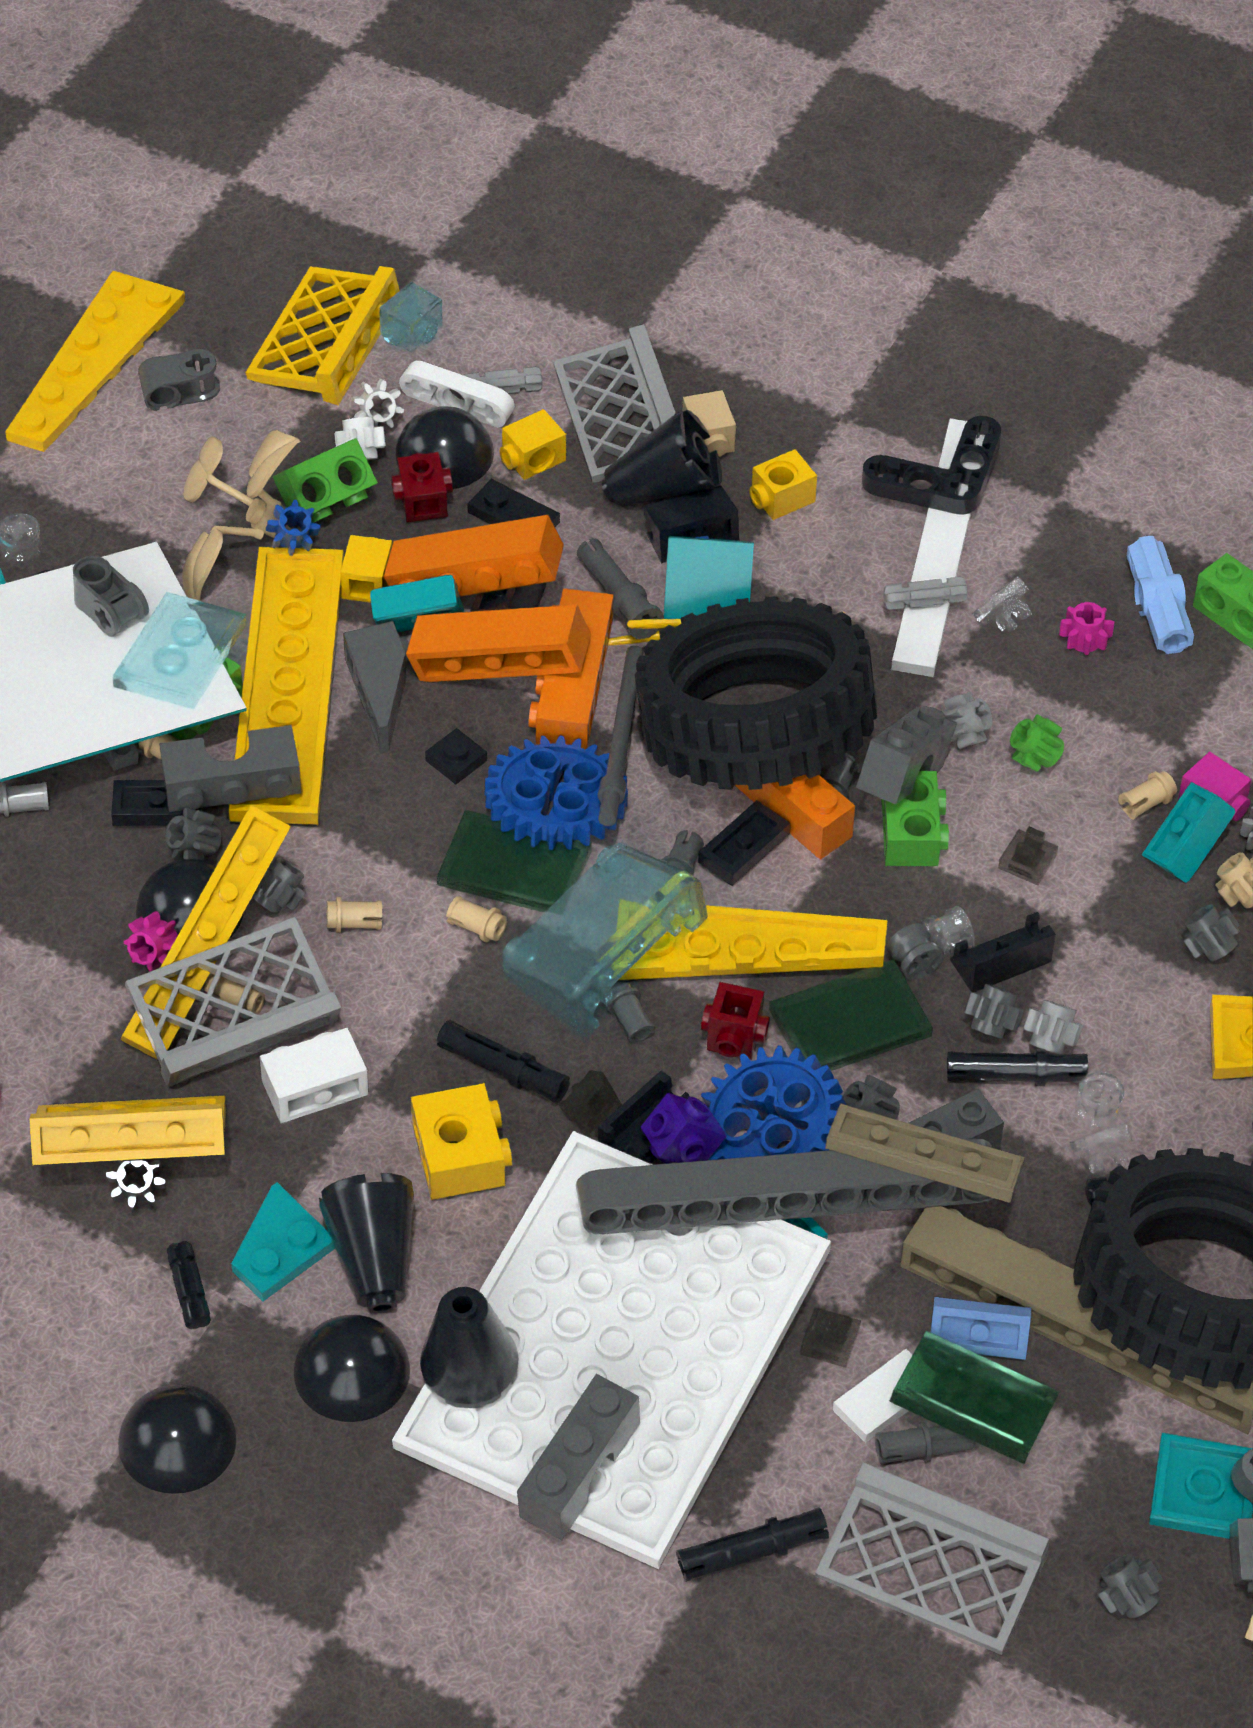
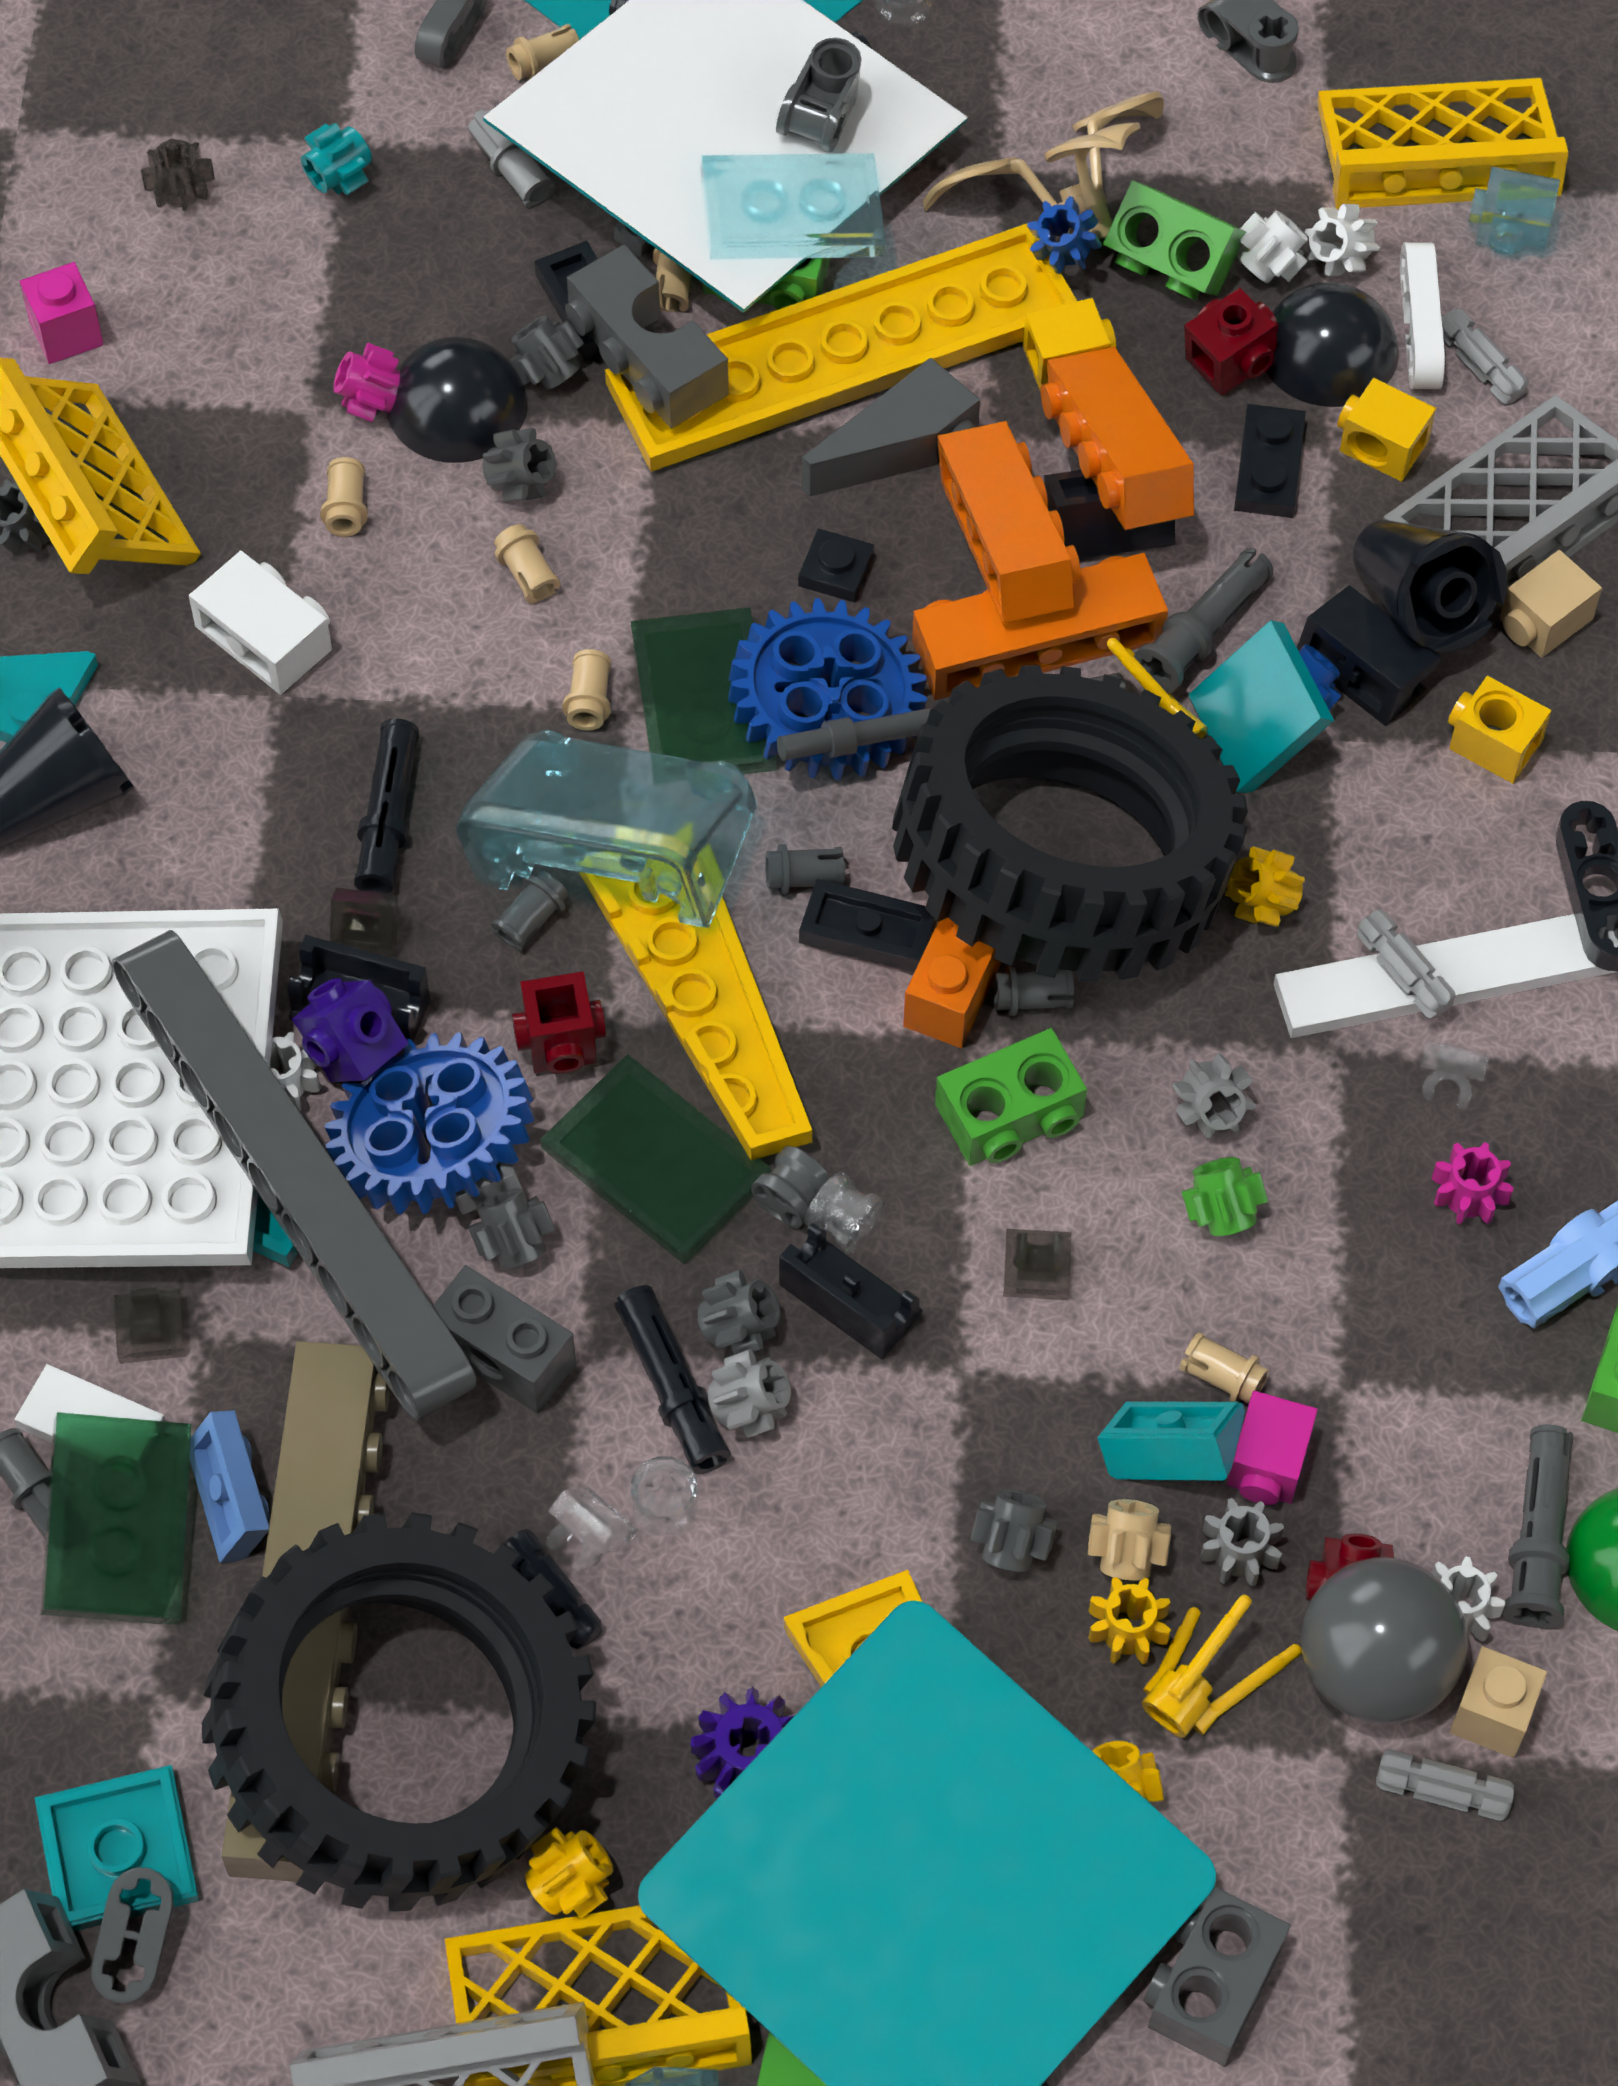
camera: 65 degrees right, 10 degrees up
(214, 916) = (391, 418): yellow plate -> none
(239, 1039) = (296, 540): light grey fence -> none
(408, 600) = (1028, 412): teal slope -> none
(478, 1156) = (228, 836): yellow brick -> none
(902, 750) = (1045, 1021): dark grey arch -> none
(925, 1152) = (396, 1297): dark tan tile -> none

